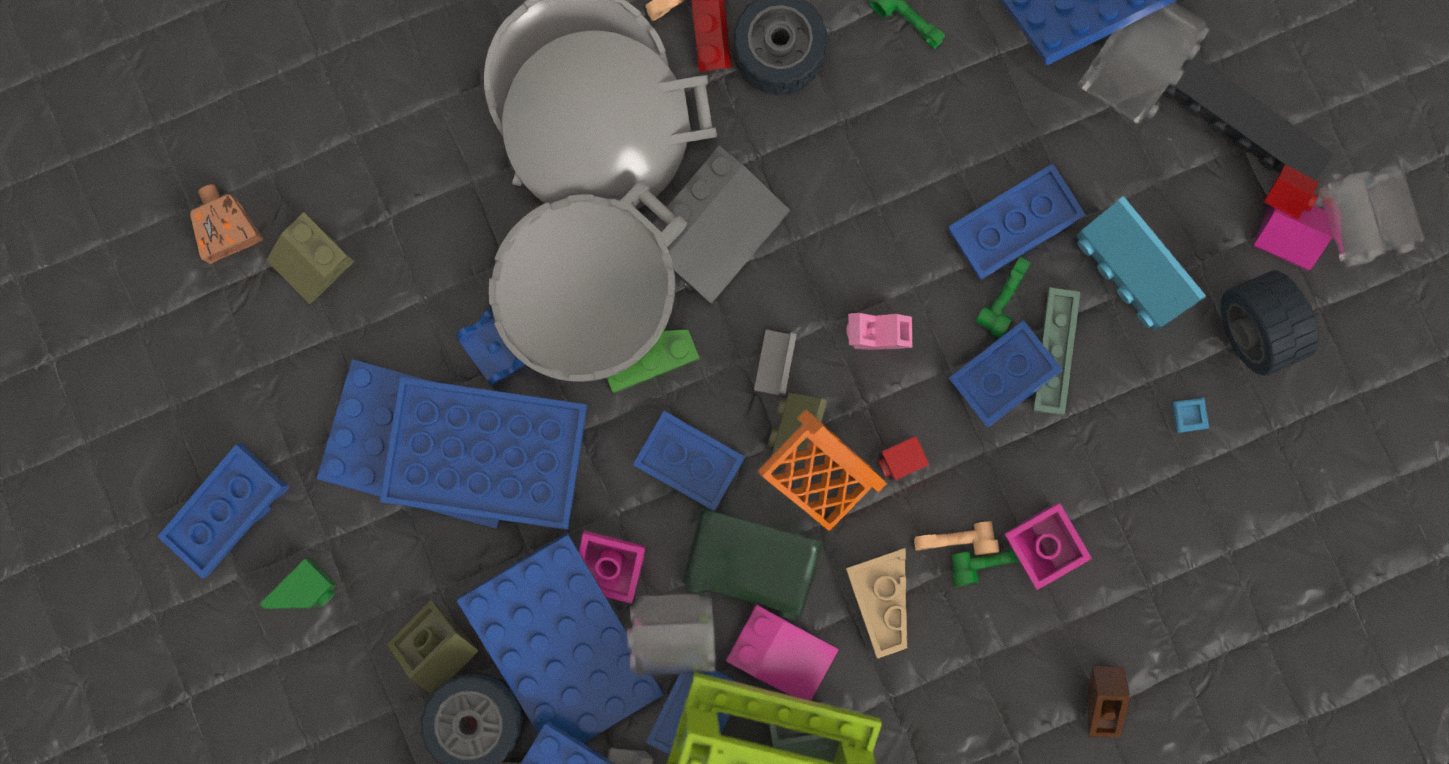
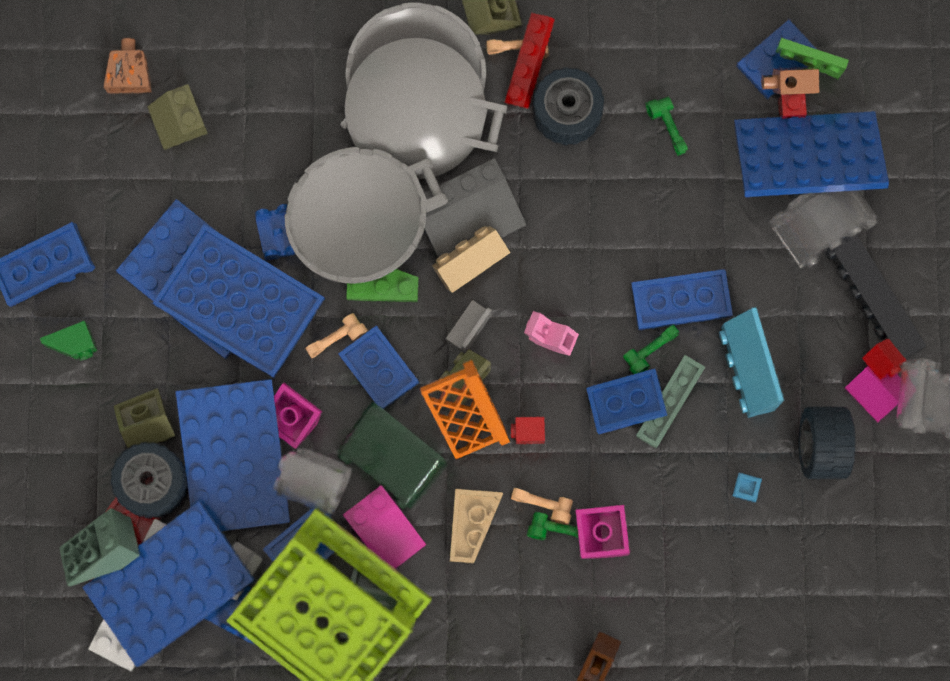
camera: 25 degrees right, 5 degrees down
(634, 425) = (351, 327): none -> light nougat brick
(742, 280) = (470, 258): none -> tan brick

